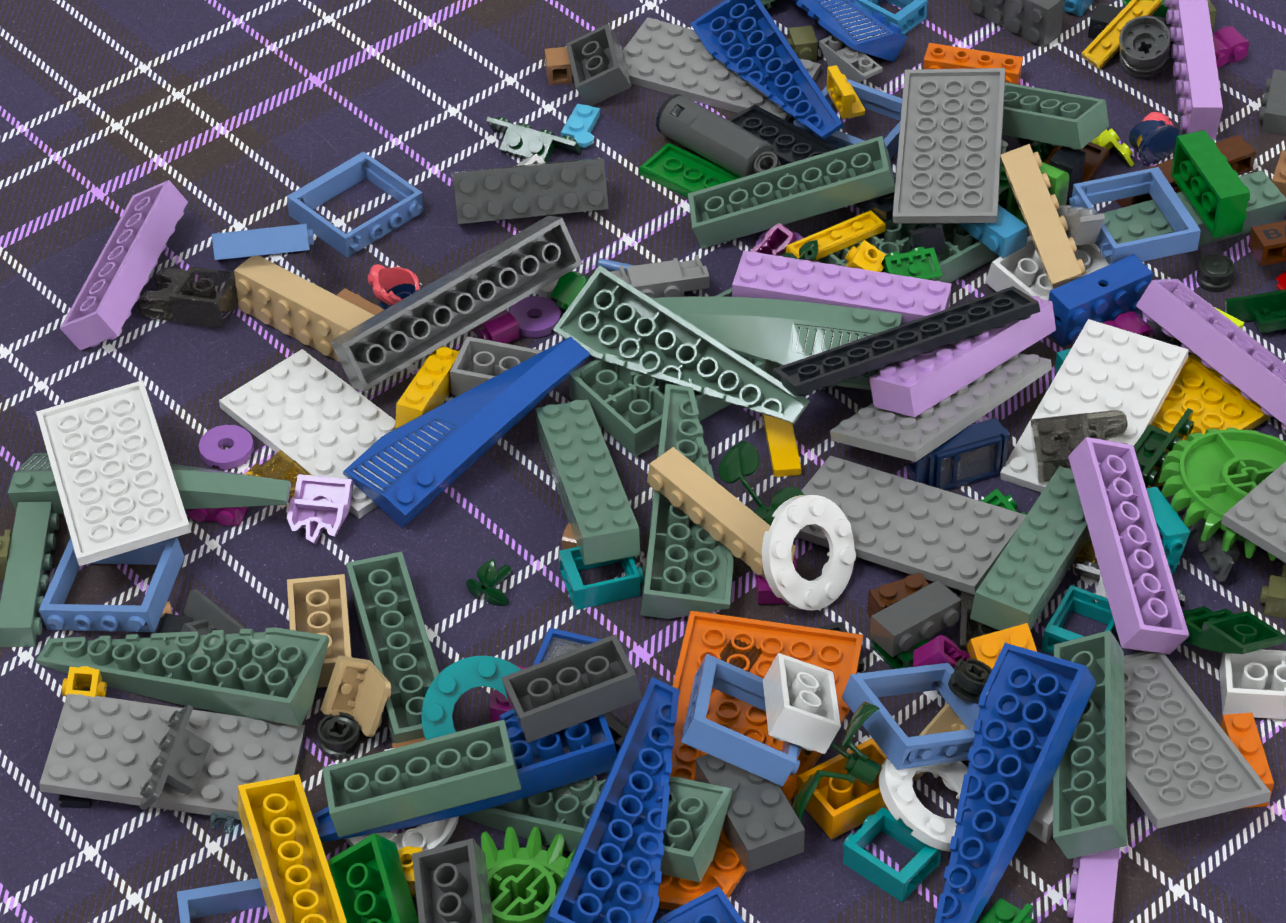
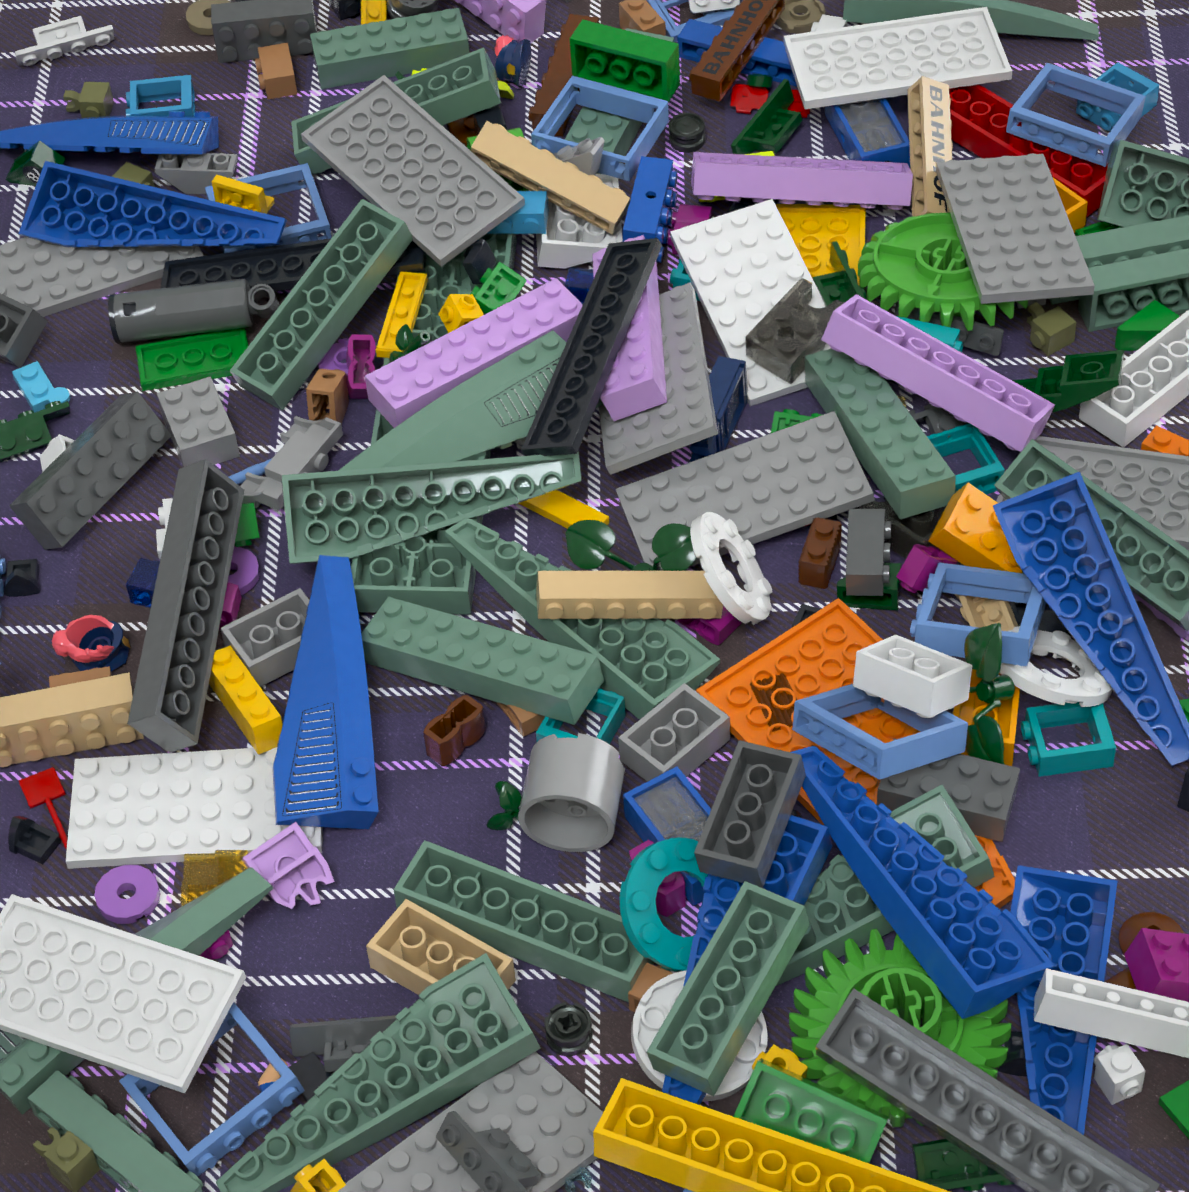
camera: 45 degrees left, 5 degrees up
(221, 372) = (32, 839): none -> black tile
(265, 352) = (42, 789): none -> red piece
(358, 690) = (556, 975): tan bracket -> none
(419, 226) = (22, 578): none -> black tile
(518, 510) = (454, 730): none -> reddish brown brick
(519, 599) = (571, 793): none -> light grey brick
(634, 215) = (198, 423): none -> light grey brick
(644, 625) = (675, 733): none -> light grey brick
(723, 257) = (327, 391): none -> medium nougat torso
(952, 57) = (274, 113): orange brick -> none
(969, 679) = (981, 558): pearl dark grey wheel -> none
(994, 34) = (276, 71): none -> medium nougat brick
(1088, 72) = (387, 47): none -> sand green brick

